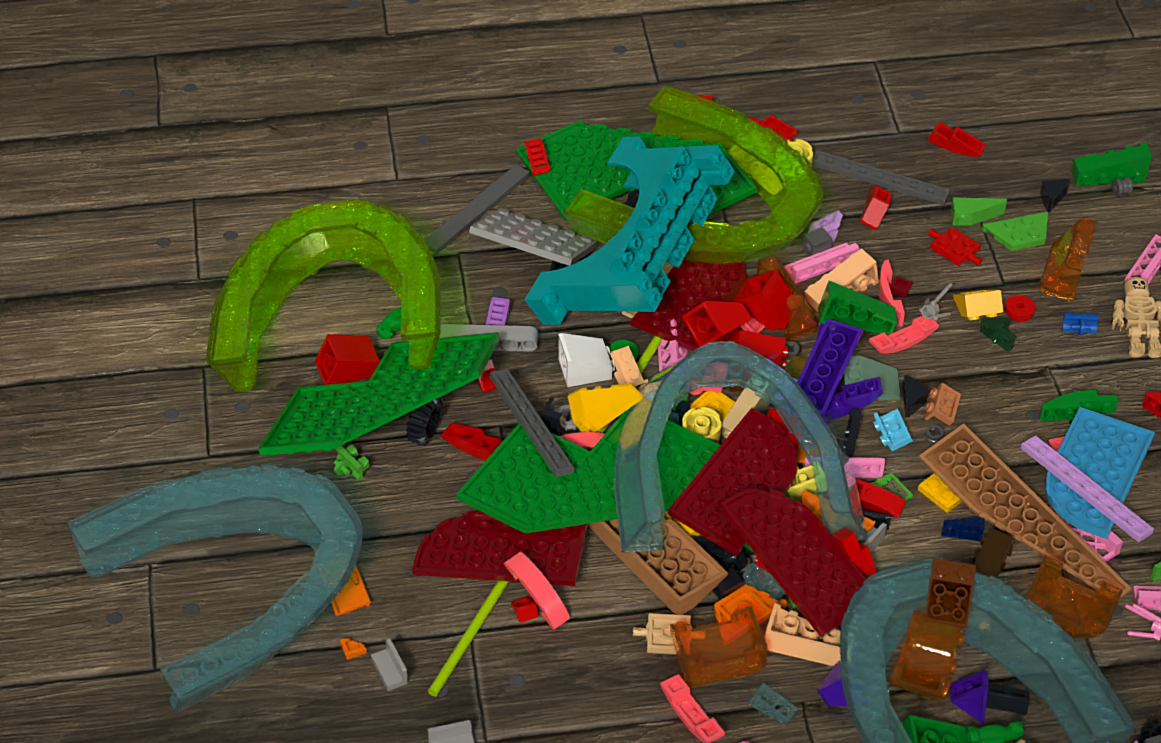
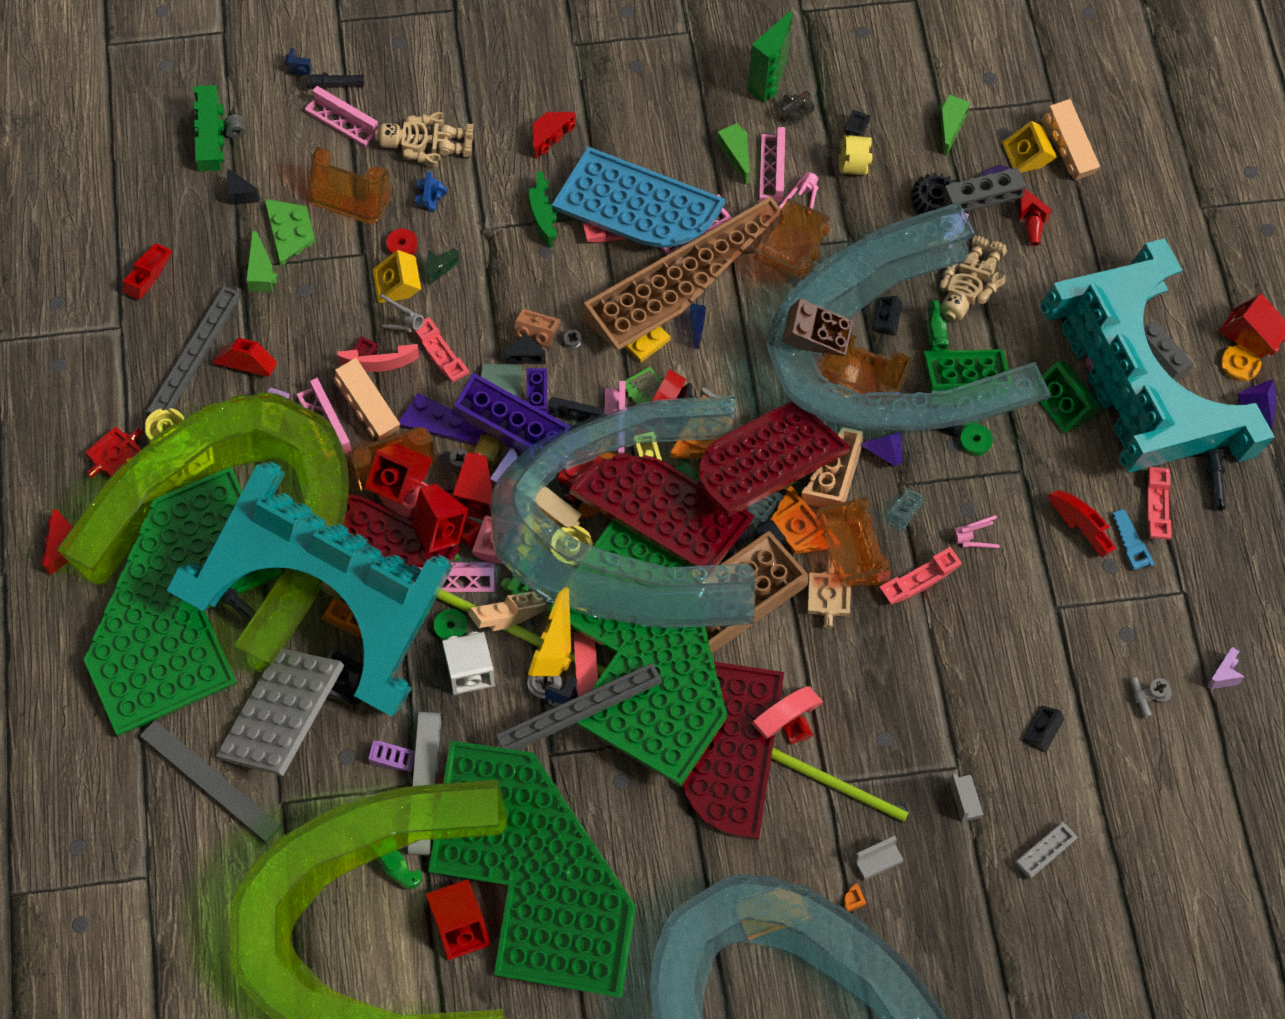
camera: 90 degrees left, 15 degrees up
(471, 440) = (581, 777): red slope -> none
(533, 147) = (124, 701): red slope -> none
(855, 551) = (747, 412): red slope -> none
(856, 310) = (417, 388): green wedge -> none
(893, 430) = (570, 373): medium azure bracket -> none
(955, 246) = (309, 291): red plate -> none
(971, 695) = (891, 337): dark purple slope -> none
(993, 553) = (742, 307): dark brown wedge -> none
(1087, 488) = (667, 210): lavender tile -> none

